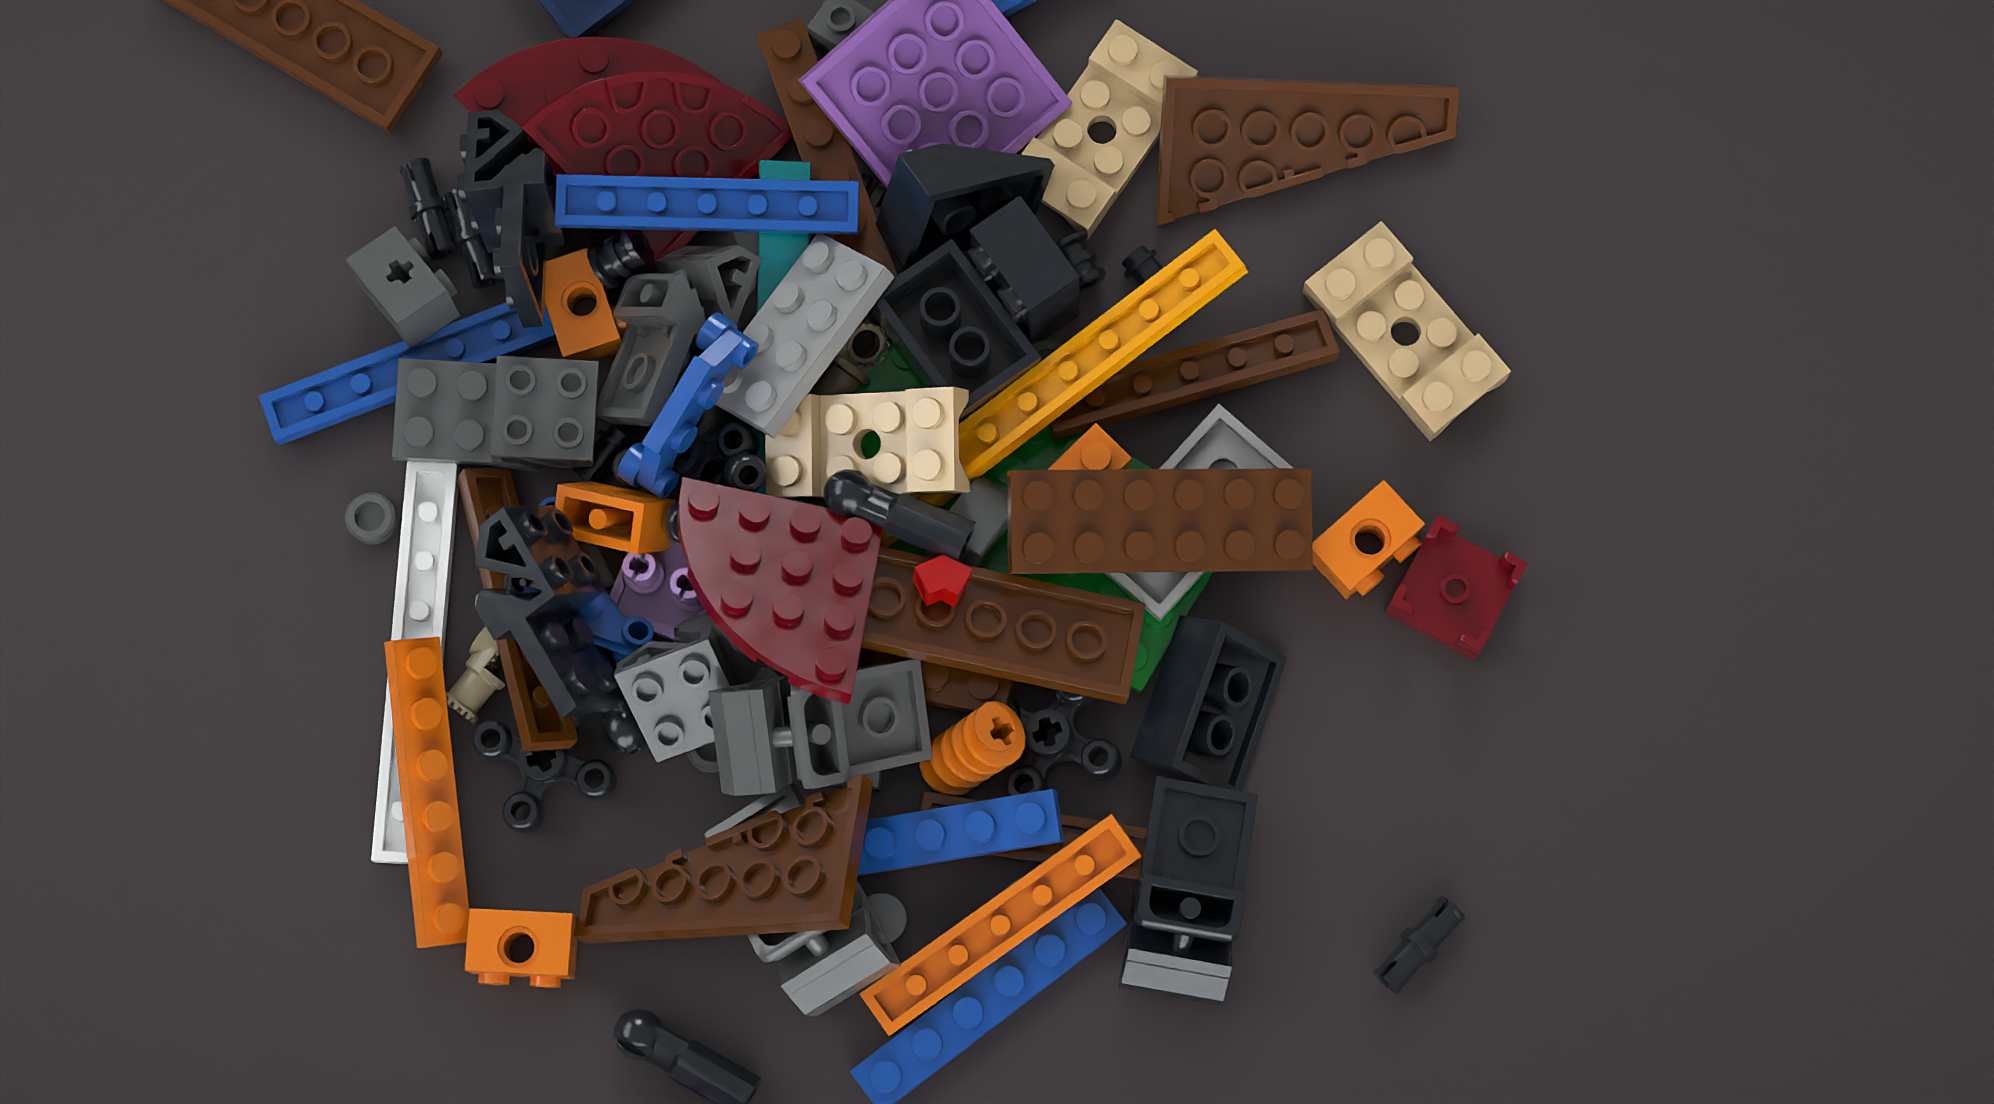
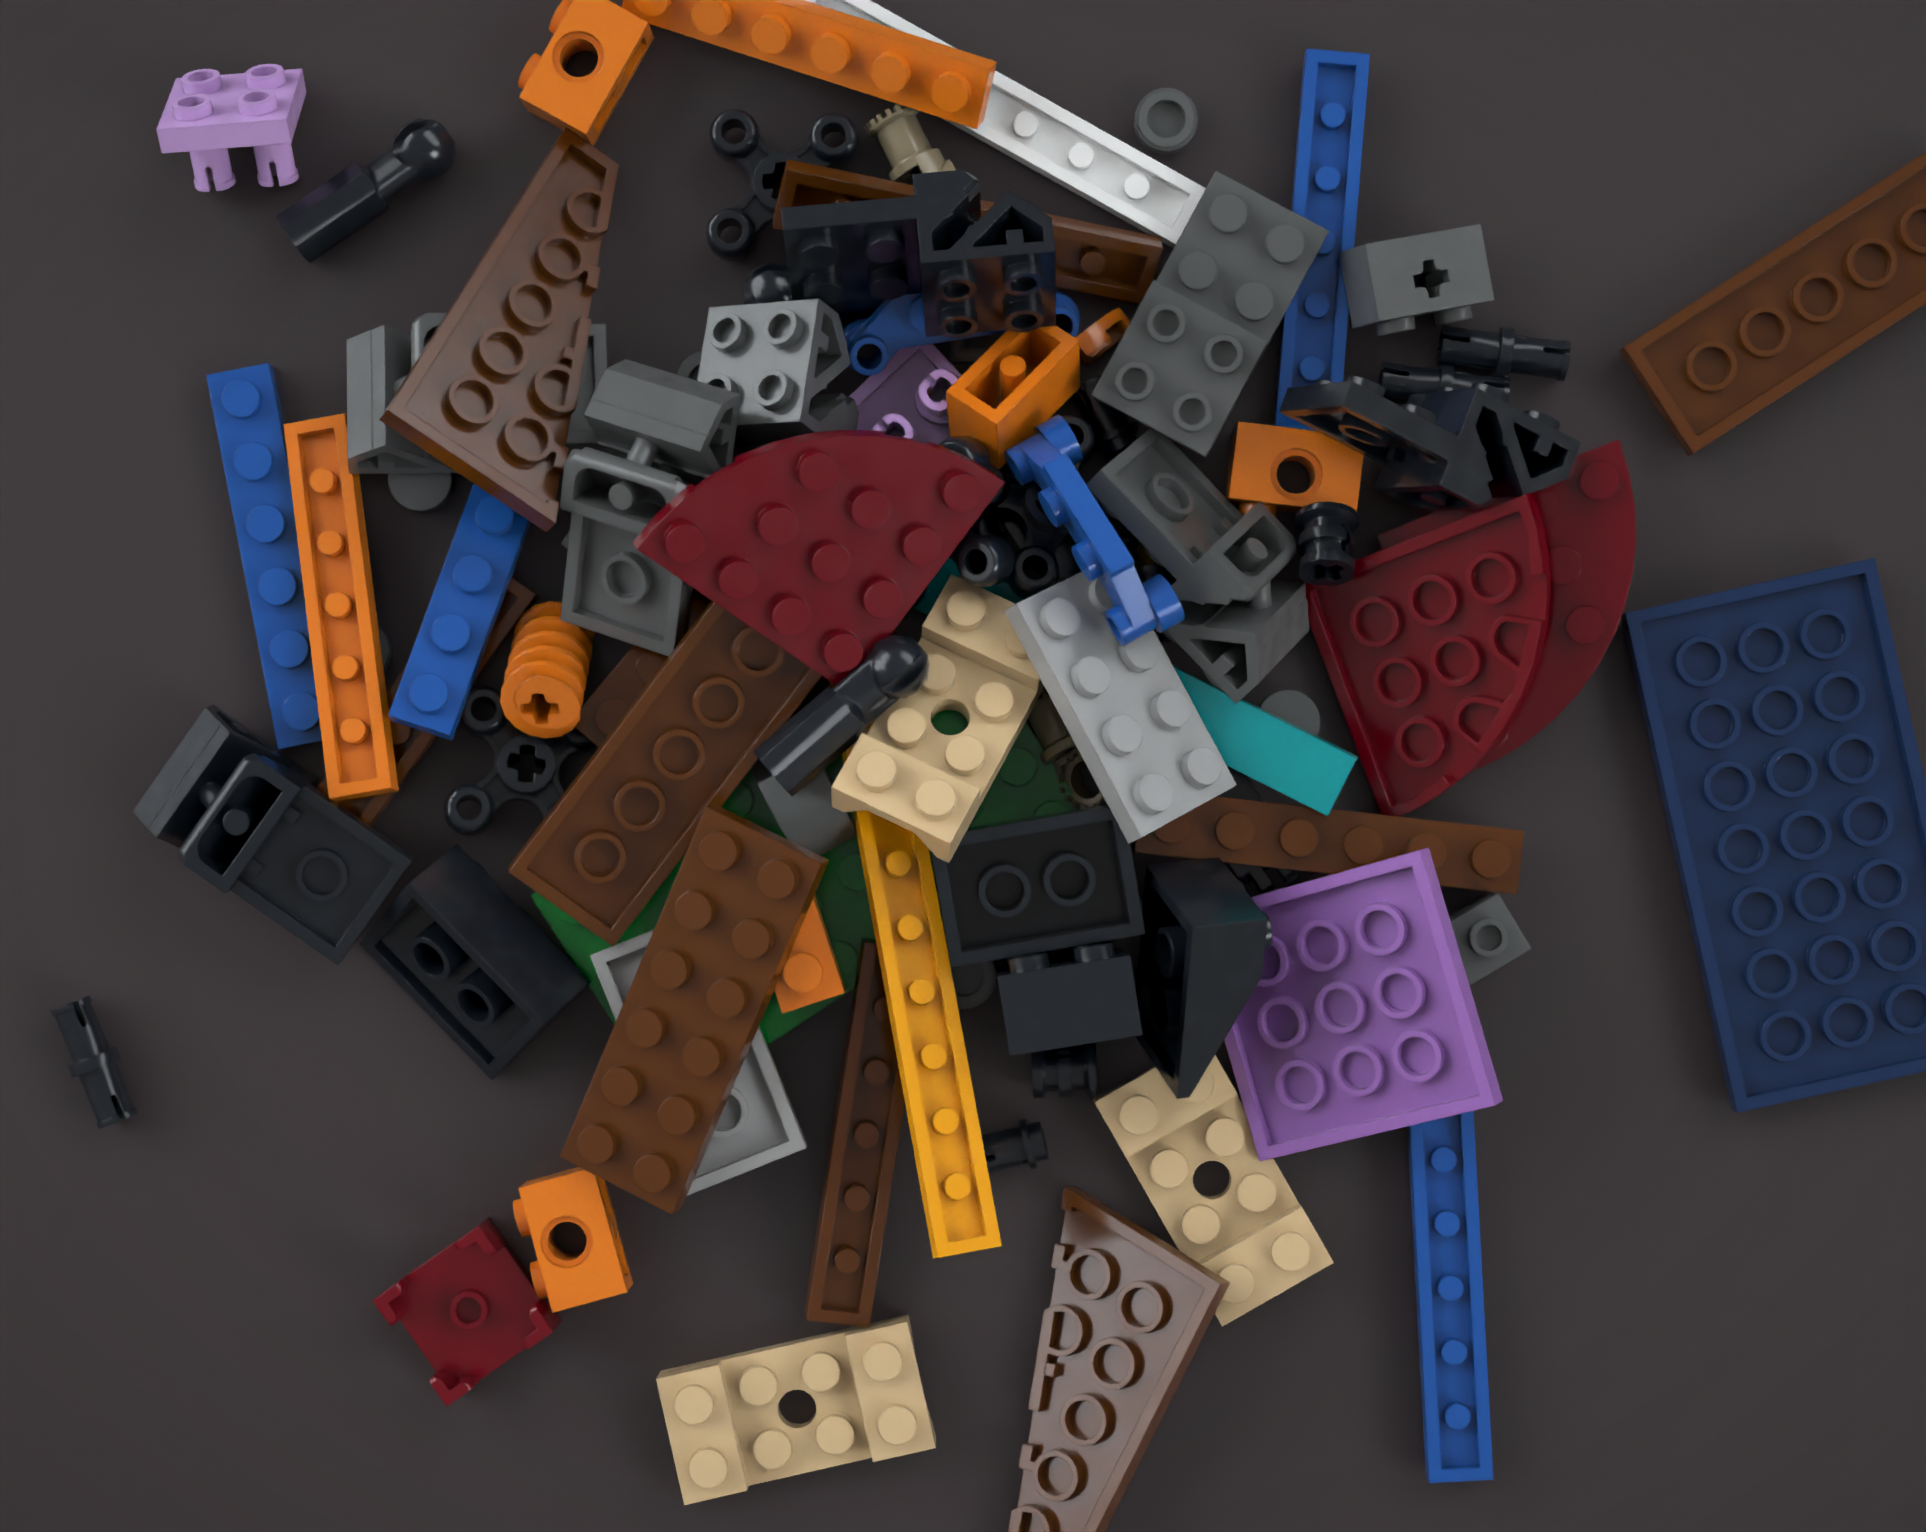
camera: 110 degrees right, 10 degrees up
(541, 485) = (1102, 335): none -> orange tile
(707, 204) = (1328, 669): blue plate -> none
(941, 580) = (742, 725): red piece -> none

